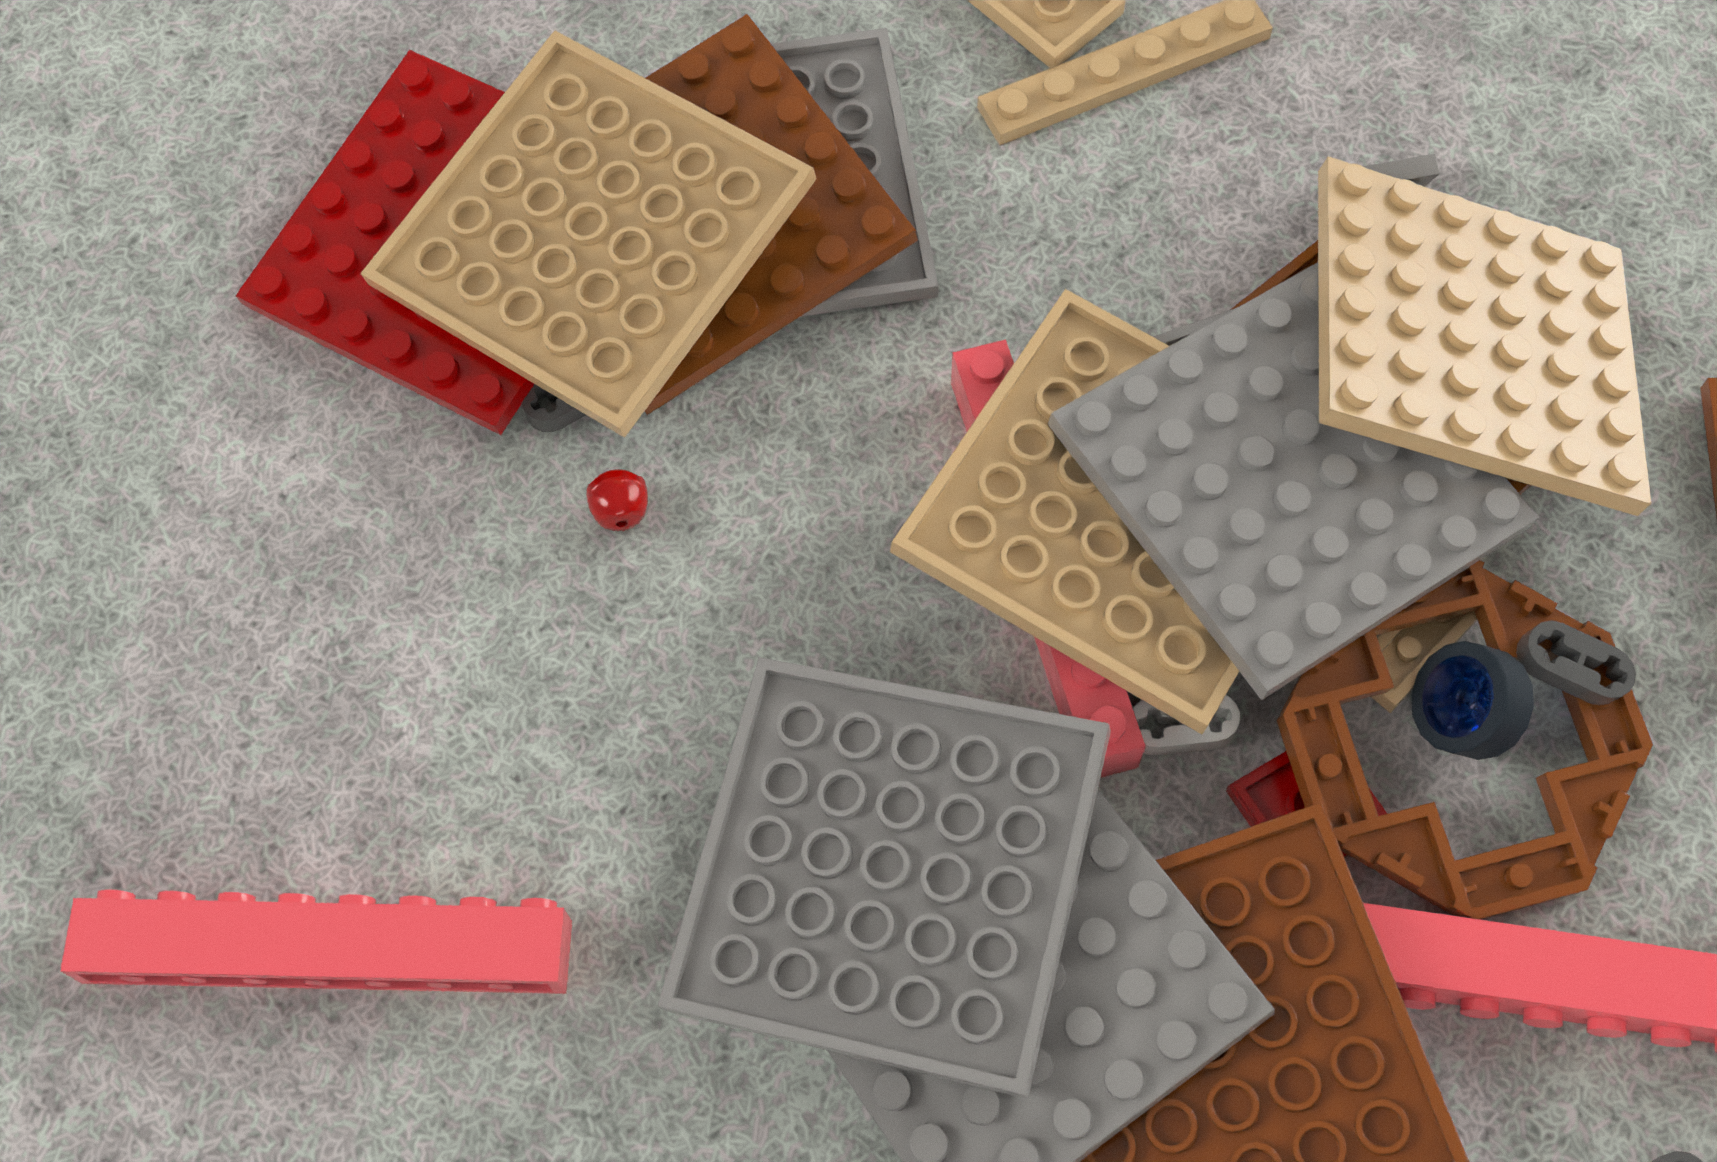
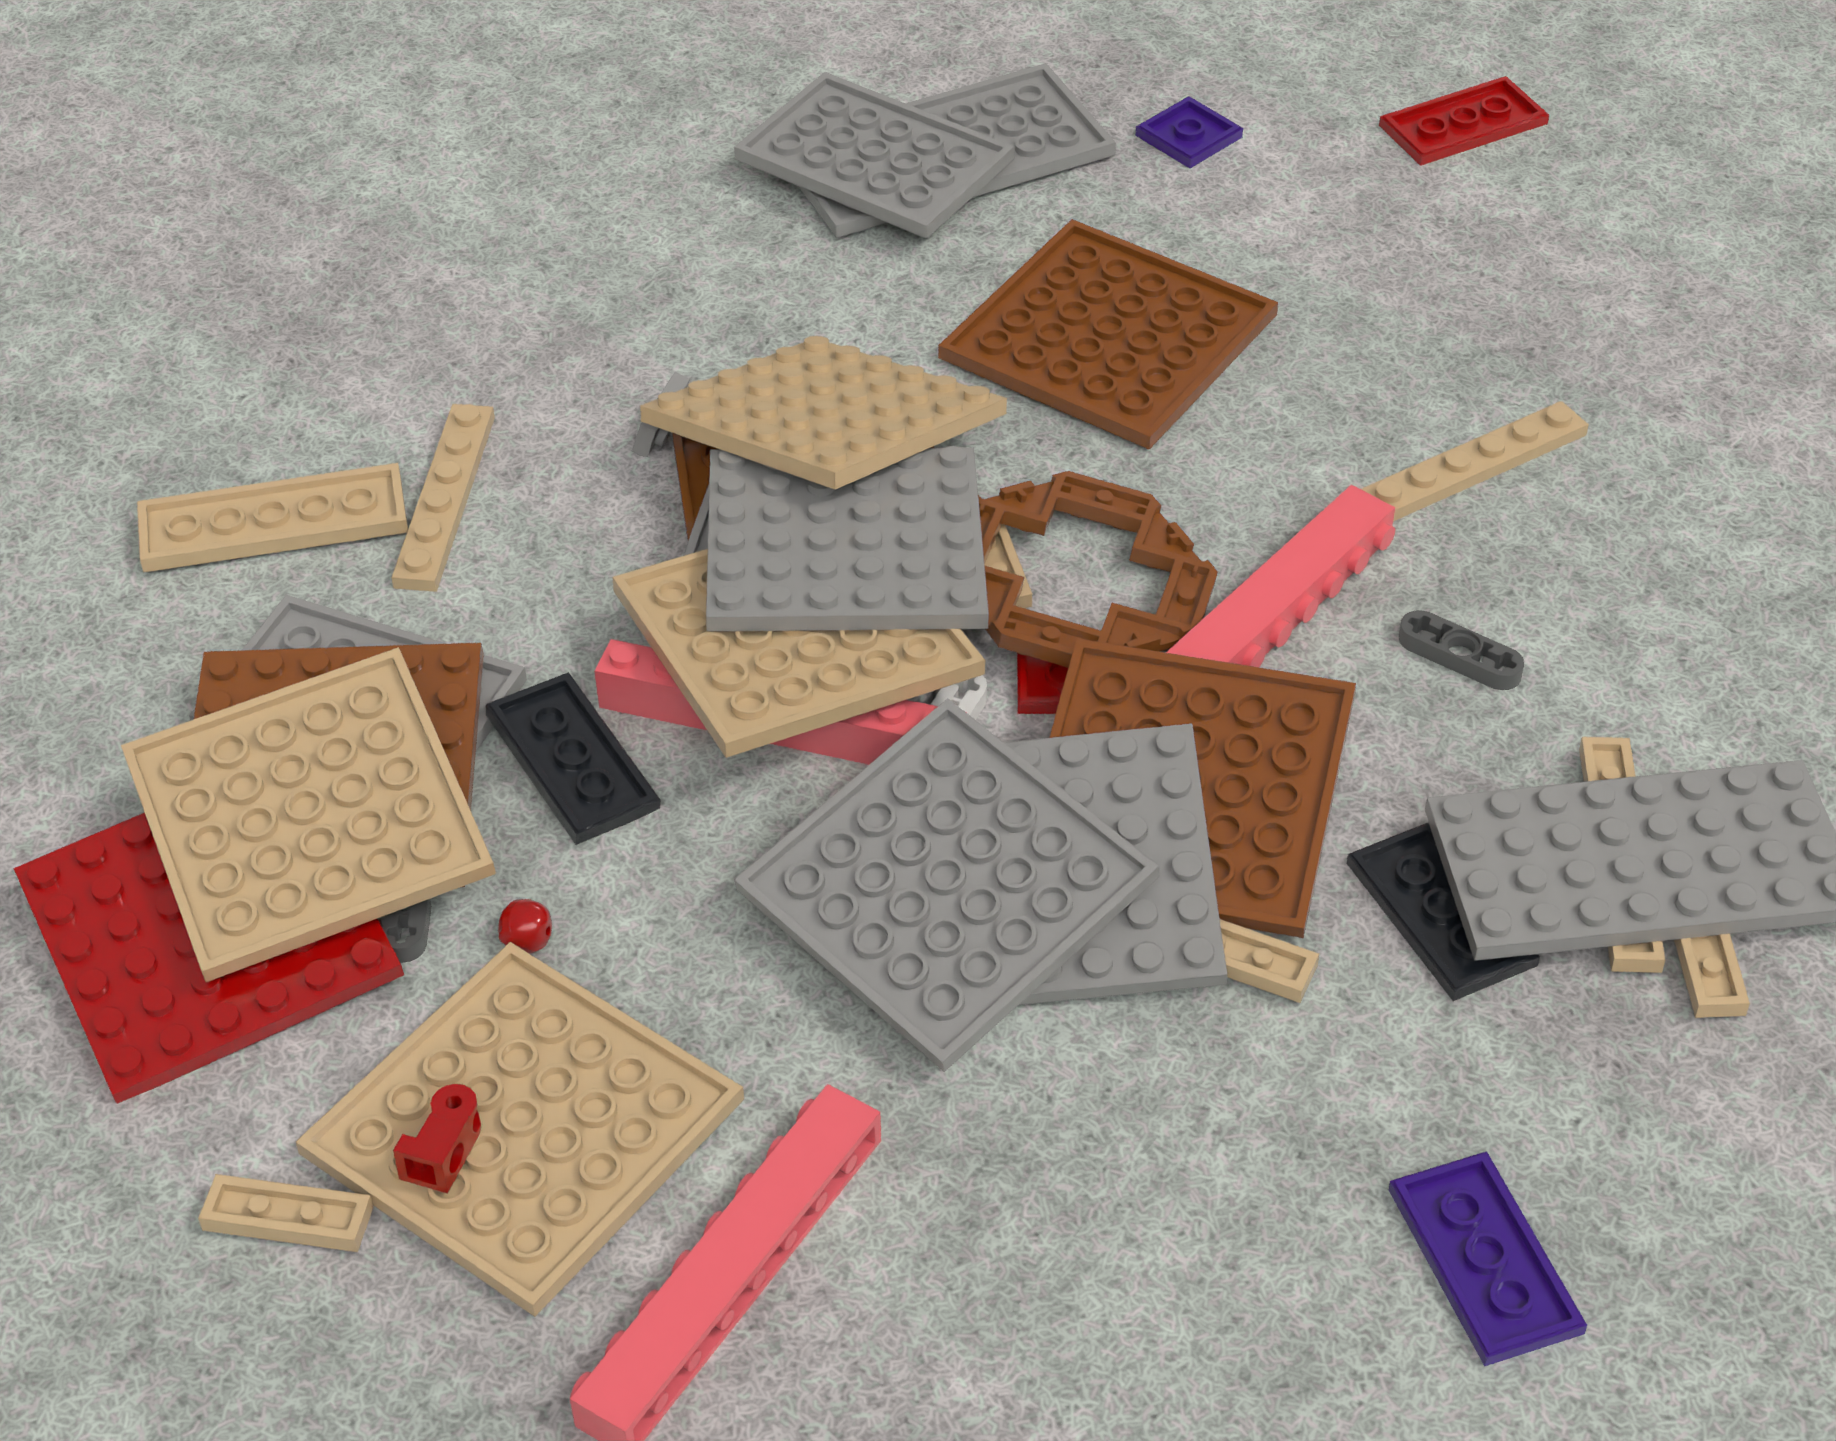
camera: 60 degrees left, 20 degrees down
(184, 519) = (286, 1212): none -> tan plate
(304, 599) = (443, 1142): none -> red leg
(390, 653) = (573, 1113): none -> tan plate
(854, 403) = (572, 758): none -> black tile
(1466, 676) = (1044, 565): wheel -> none
(1575, 663) = (1076, 490): dark grey beam -> none

